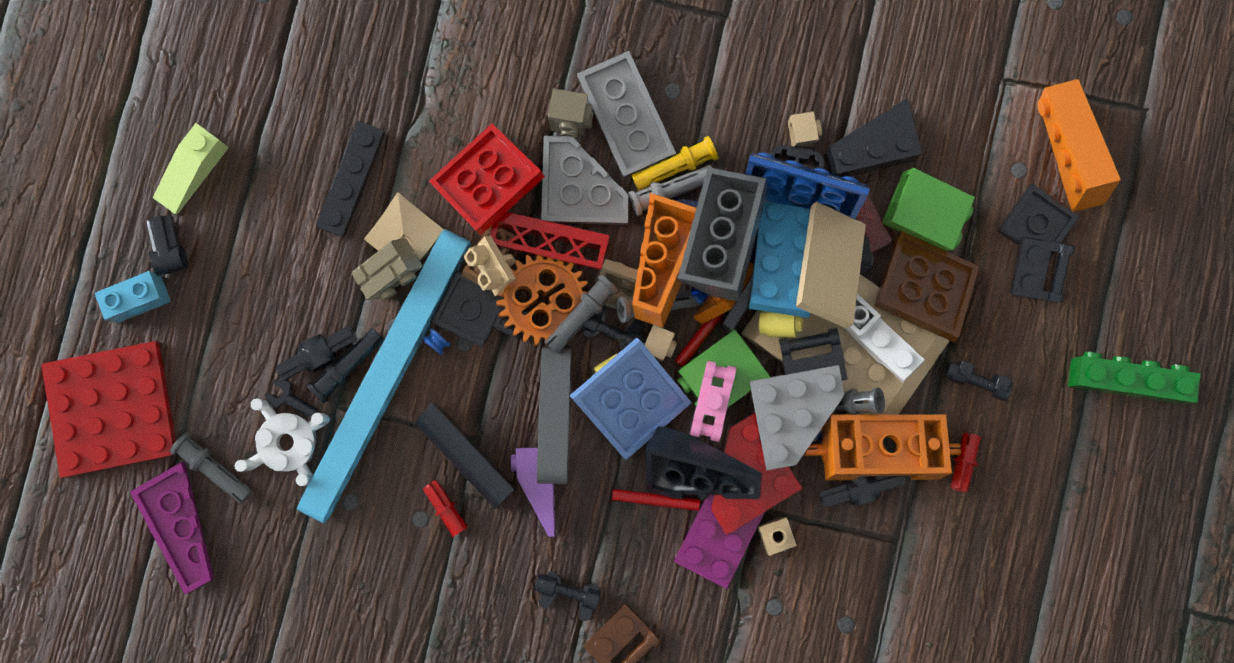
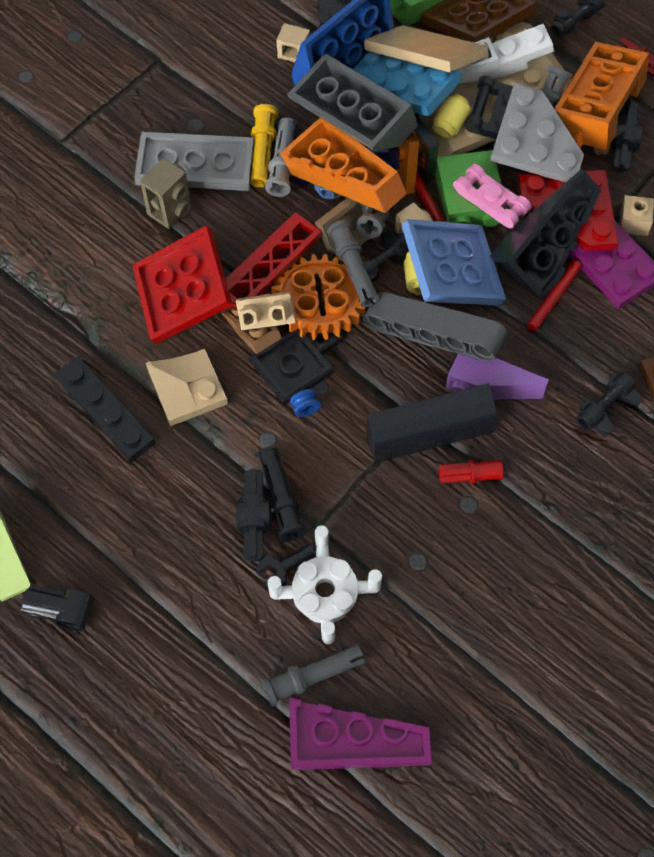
camera: 65 degrees left, 20 degrees down
(109, 409) = (189, 753): red plate -> none
(132, 297) = (89, 662): medium azure brick -> none
(383, 377) = (316, 468): medium azure beam -> none
(387, 270) = (213, 406): dark tan brick -> none
(578, 187) = (237, 222): light grey plate -> none

